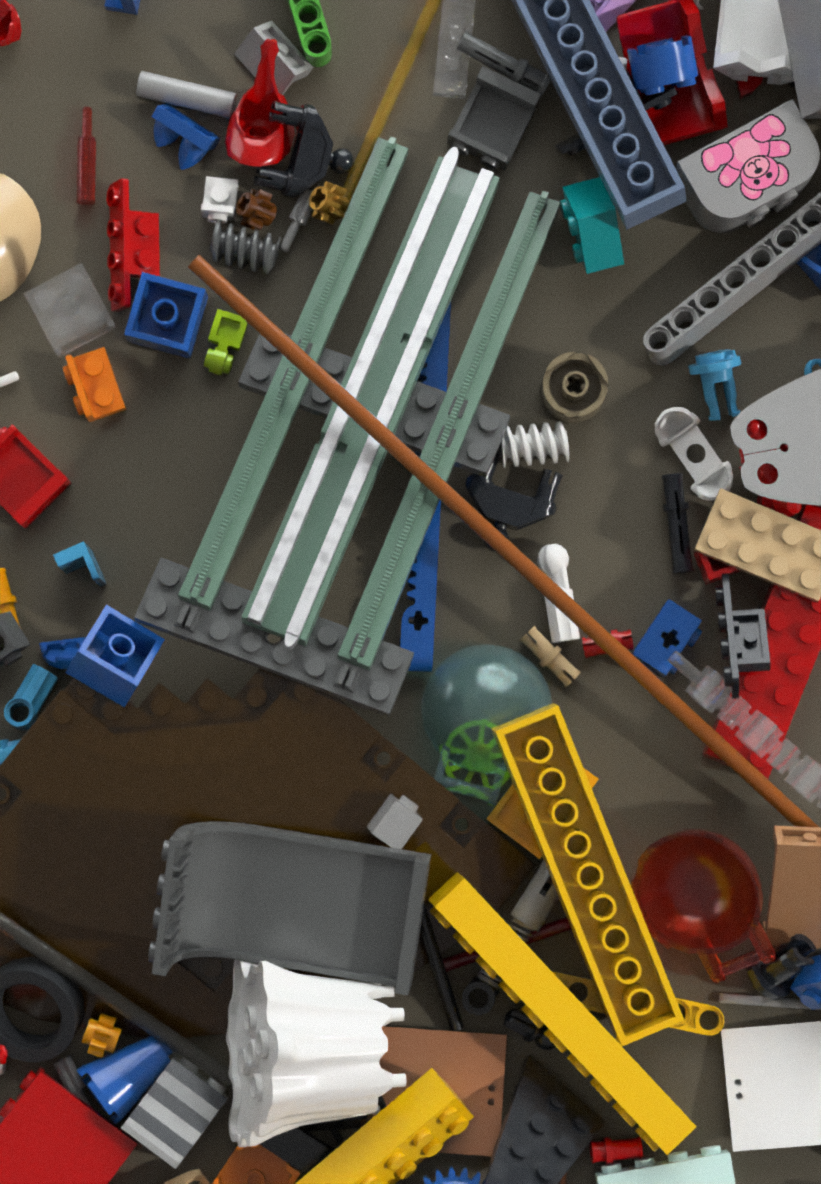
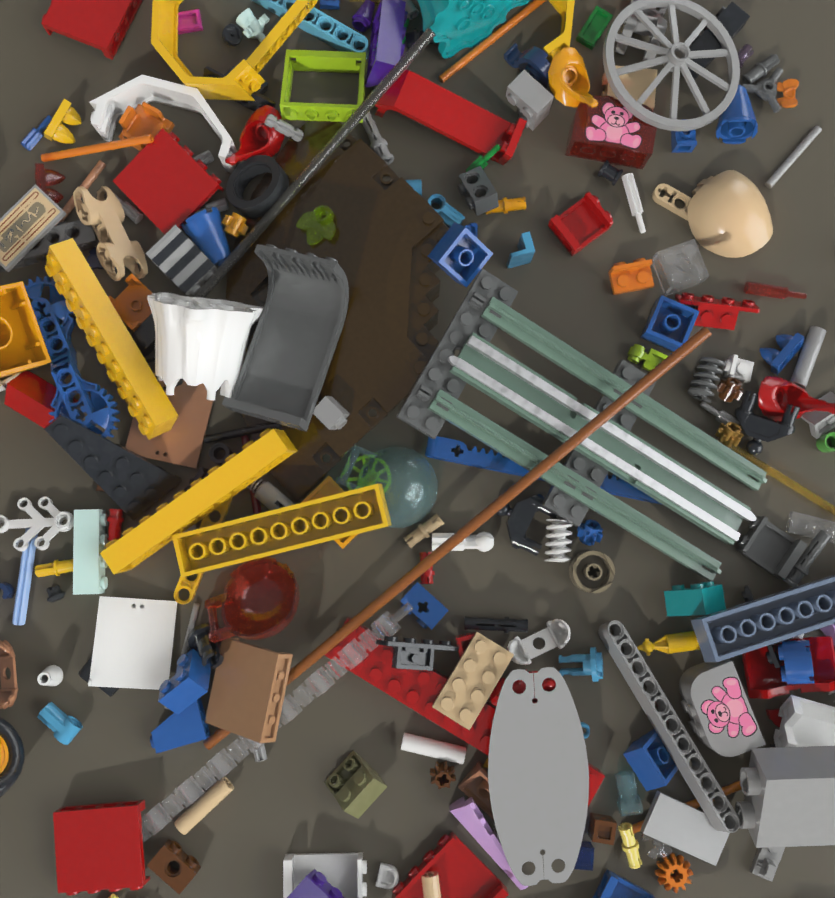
camera: 95 degrees right, 0 degrees up
(97, 894) = (317, 227): none -> clear neon green plate
(513, 397) = (590, 532): none -> blue gear
(664, 253) = (672, 643): none -> yellow wheel

